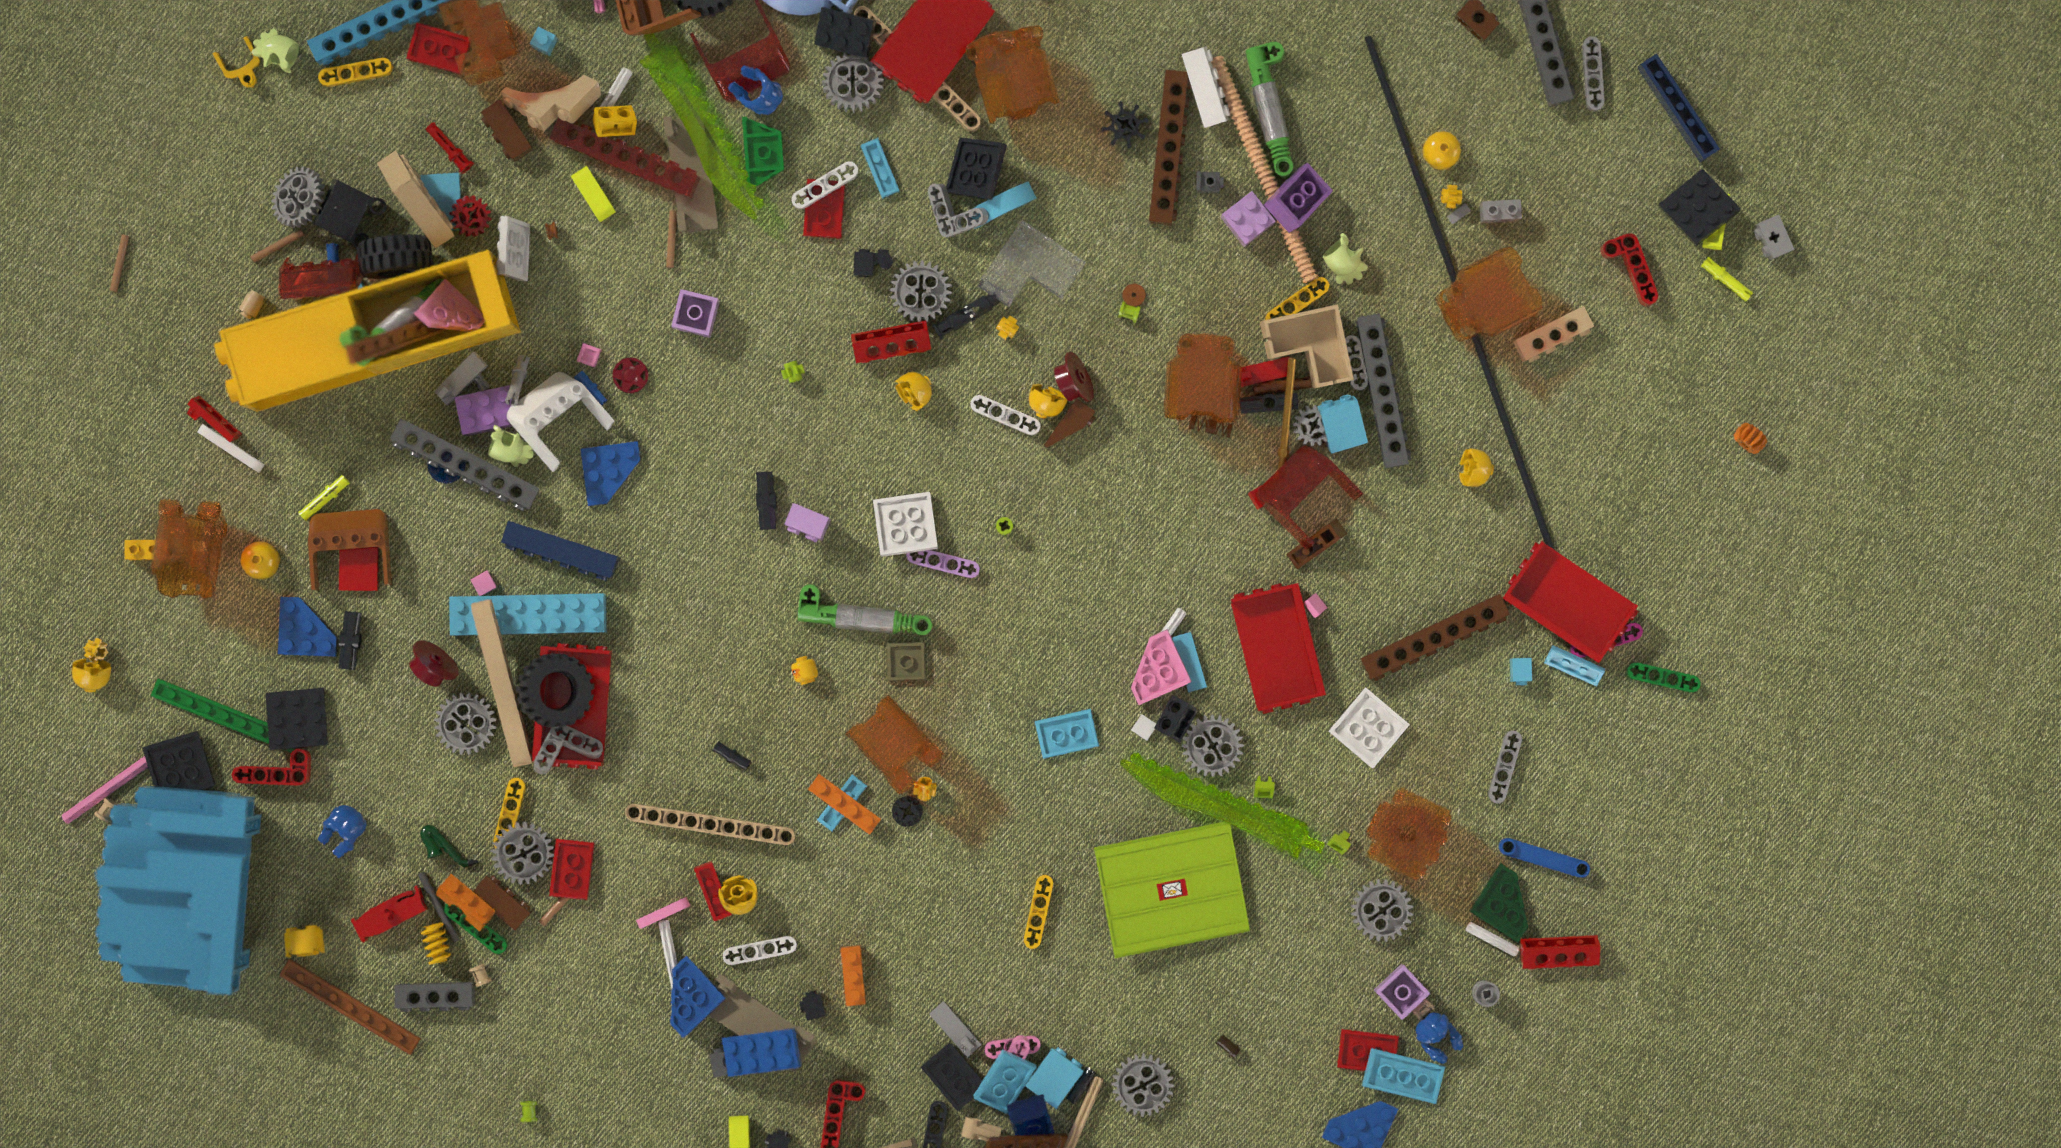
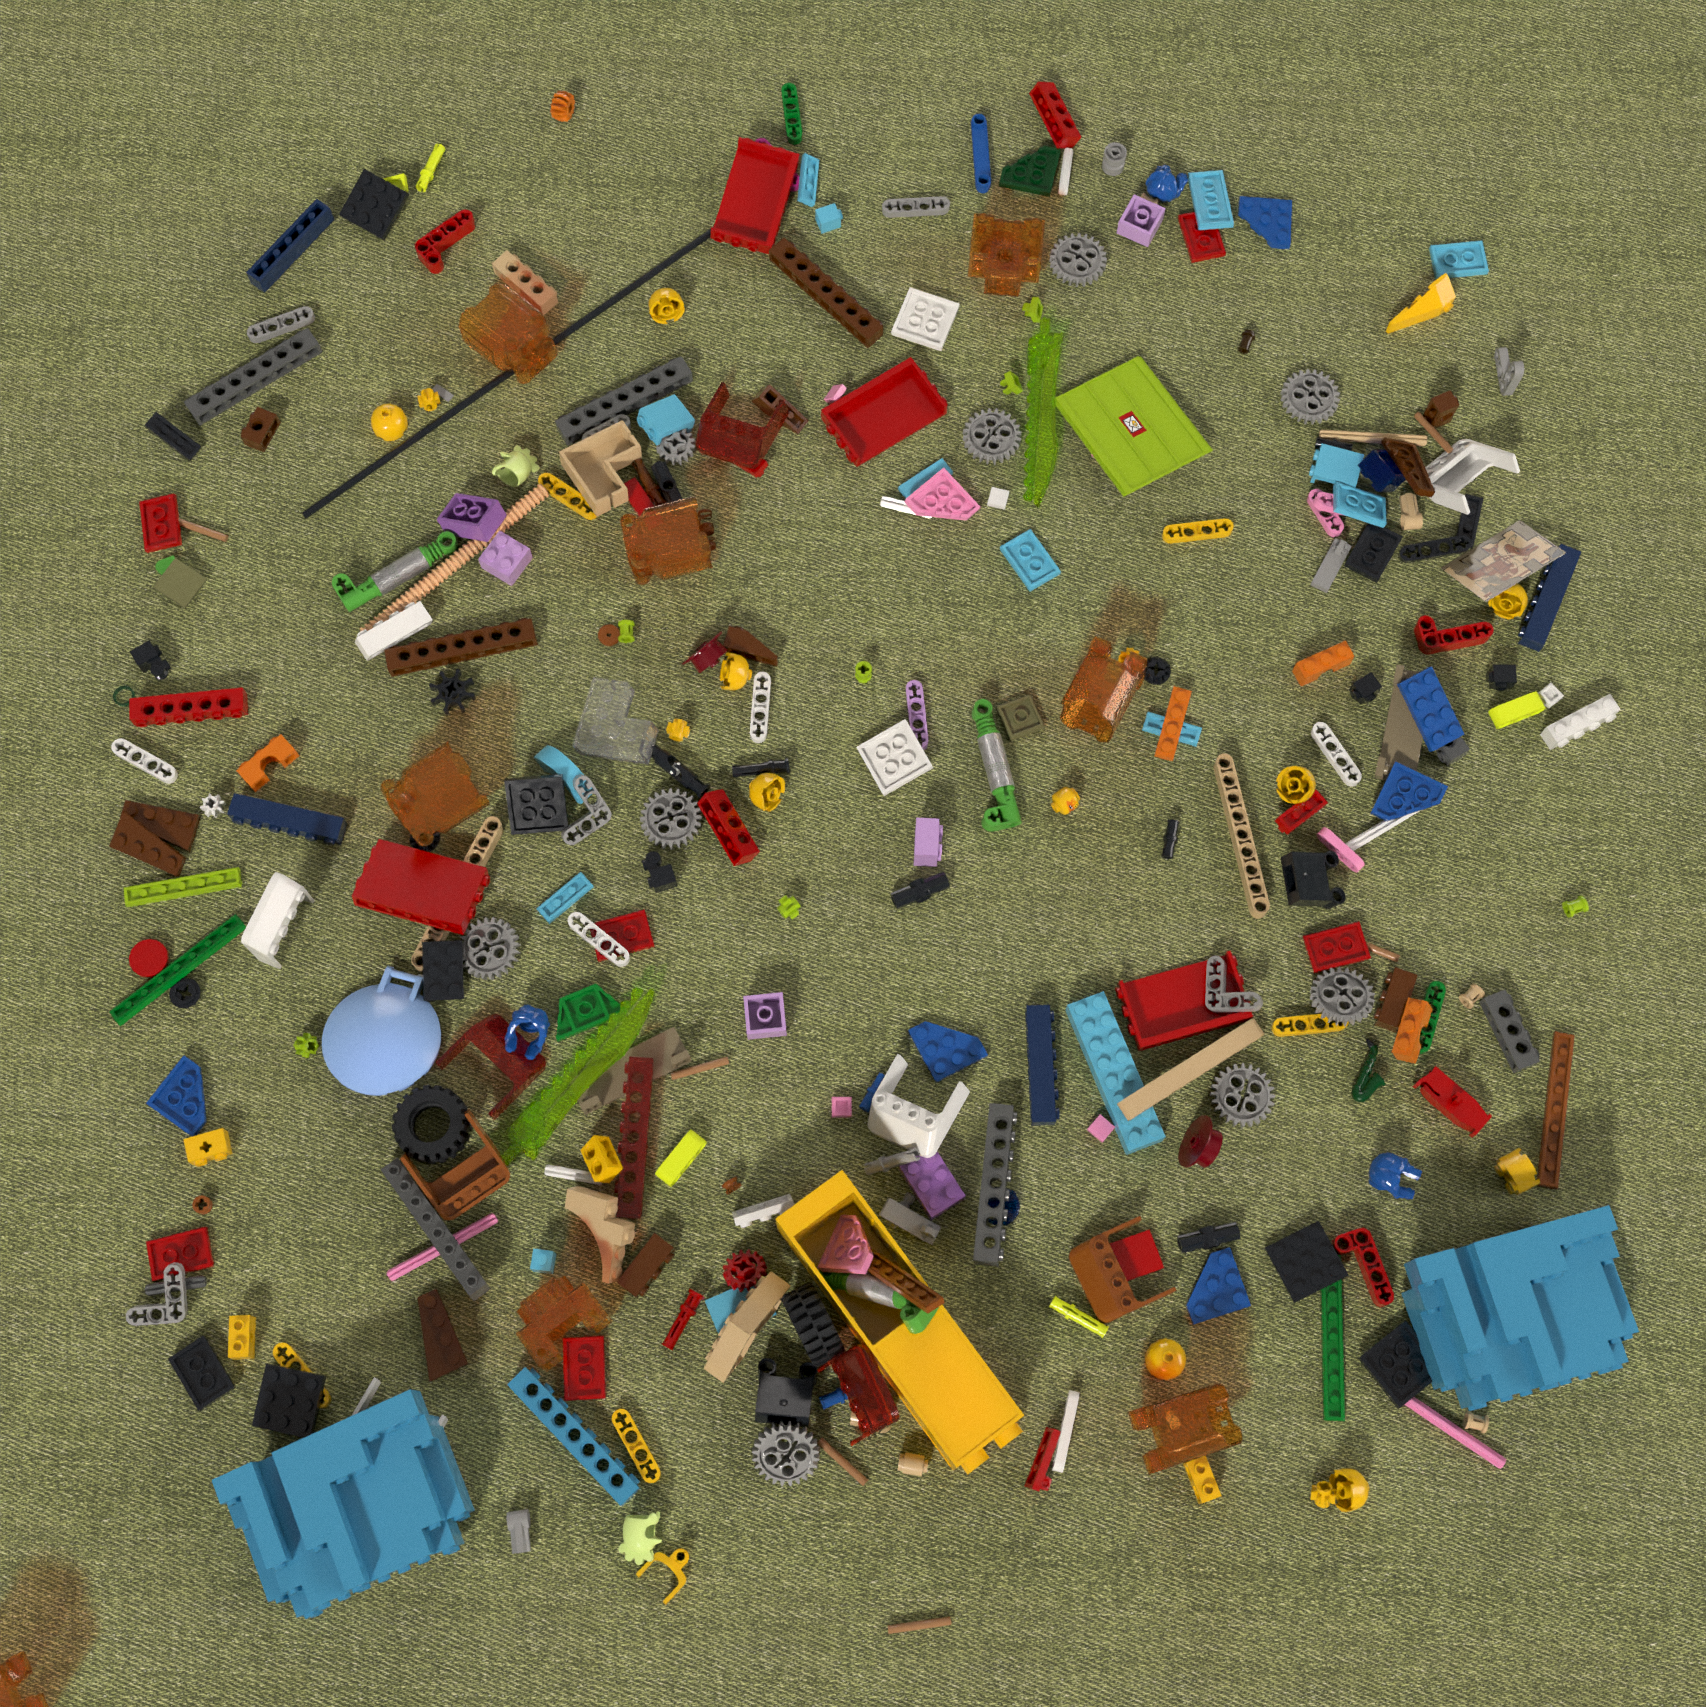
camera: 105 degrees left, 15 degrees down
(436, 943) = (1459, 1045): yellow piece -> none
(438, 906) = (1425, 1059): dark grey bar -> none
(509, 447) = (960, 1148): yellowish green piece -> none
(530, 690) = (1178, 1034): black tyre -> none
(630, 375) = (846, 1060): dark red wheel -> none
(642, 866) = (1308, 881): none -> black piece
(939, 402) = (771, 766): none -> black pin
(1176, 718) = (981, 465): black brick -> none
(1202, 185) = (484, 608): dark grey brick -> none
(1283, 451) = (707, 462): pearl gold bar -> none
(1500, 211) = (429, 356): light grey brick -> none
(1773, 227) = (381, 142): light grey brick -> none

